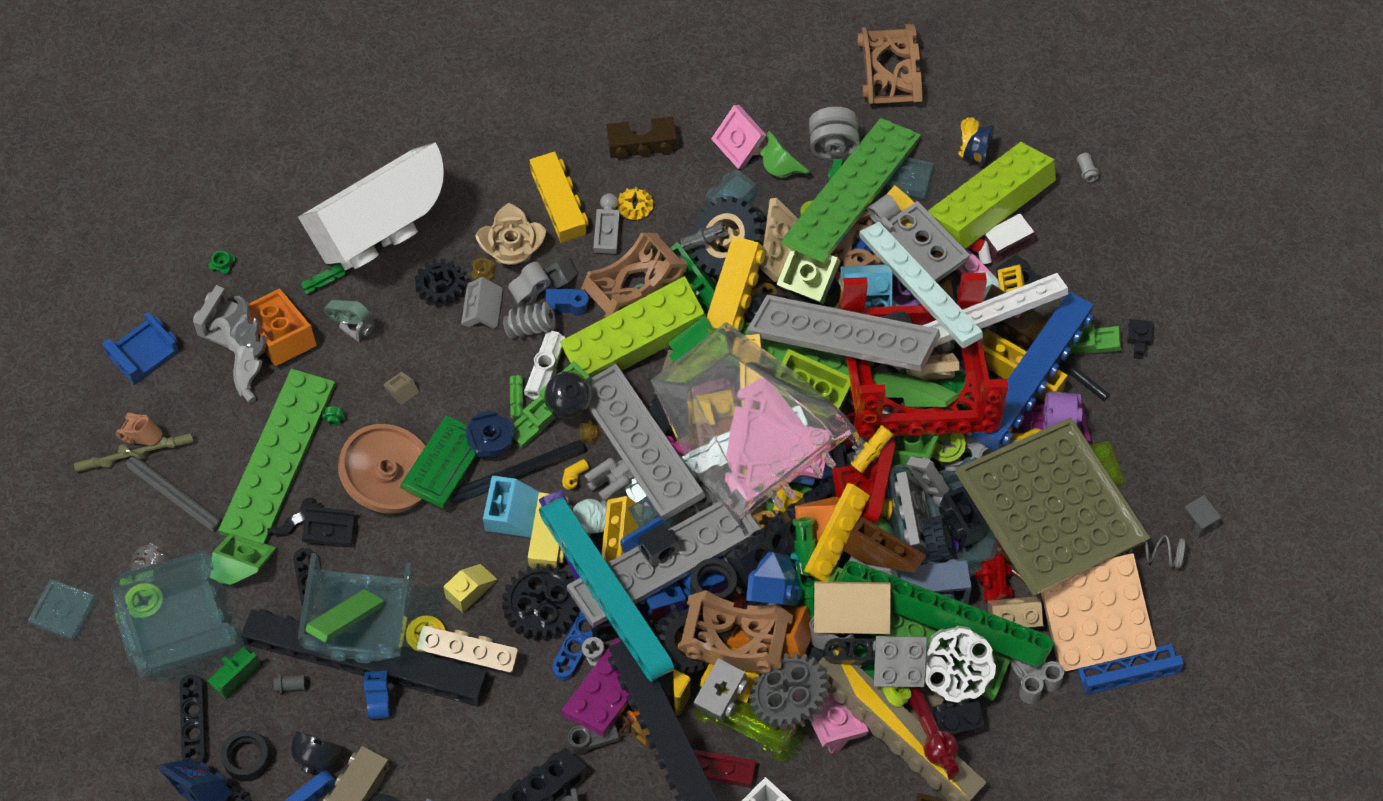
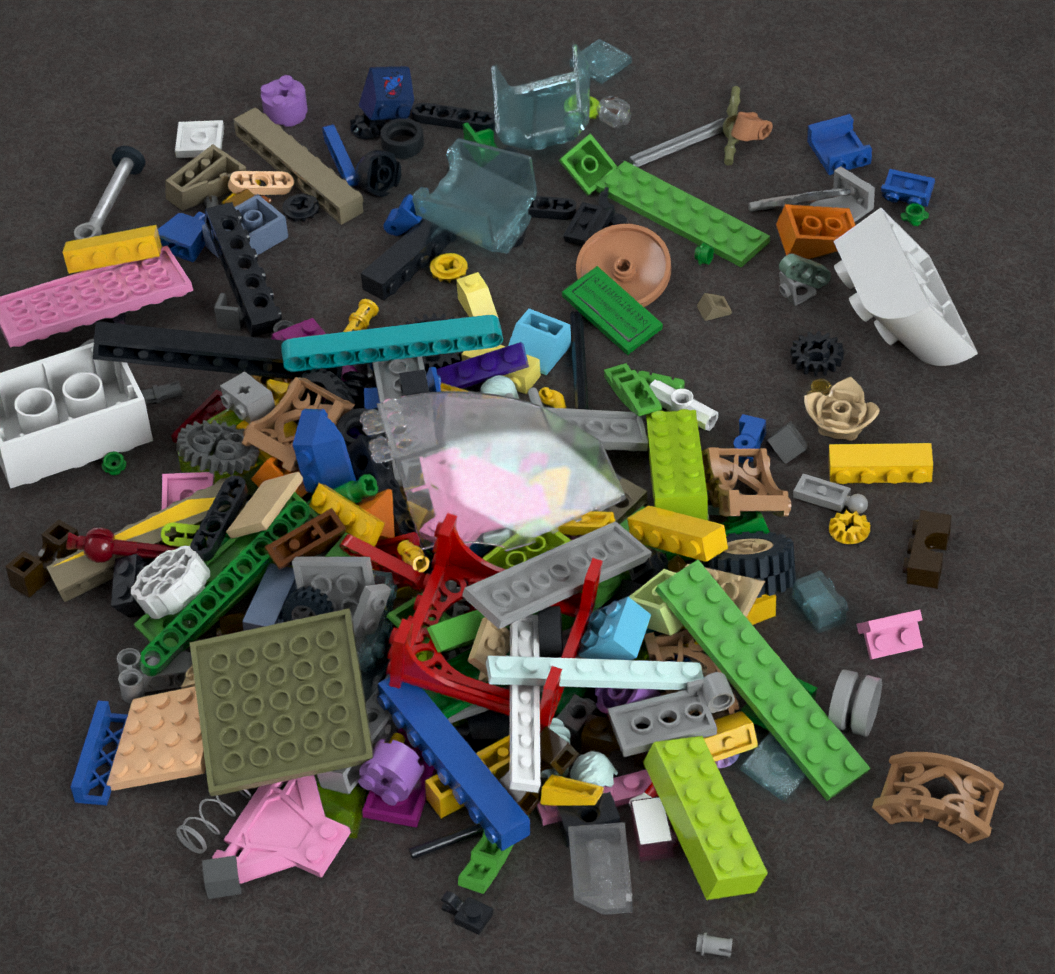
camera: 115 degrees right, 15 degrees down
(189, 274) = (907, 187): none -> blue bracket
(344, 615) = (472, 183): bright green tile -> none
(467, 649) = (414, 282): tan bracket -> none
(482, 303) = (777, 381): light grey panel -> none
(485, 445) = (622, 355): dark blue plate -> none
(529, 284) = (778, 410): light grey axle -> none
(529, 320) = (734, 398): light grey piece -> none
(534, 683) = (362, 315): none -> yellow pin
(567, 395) = (623, 387): black cylinder -> none
(690, 338) = (635, 498): green panel -> none
(704, 236) = (752, 530): dark grey pin -> none
(778, 160) = (849, 655): bright green hat -> none
(899, 661) = (195, 526): light grey hinge -> none
(975, 141) = (790, 834): dark blue piece -> none
(1065, 249) = (601, 867): none -> clear slope
(1148, 487) = (284, 831): none -> bright pink plate

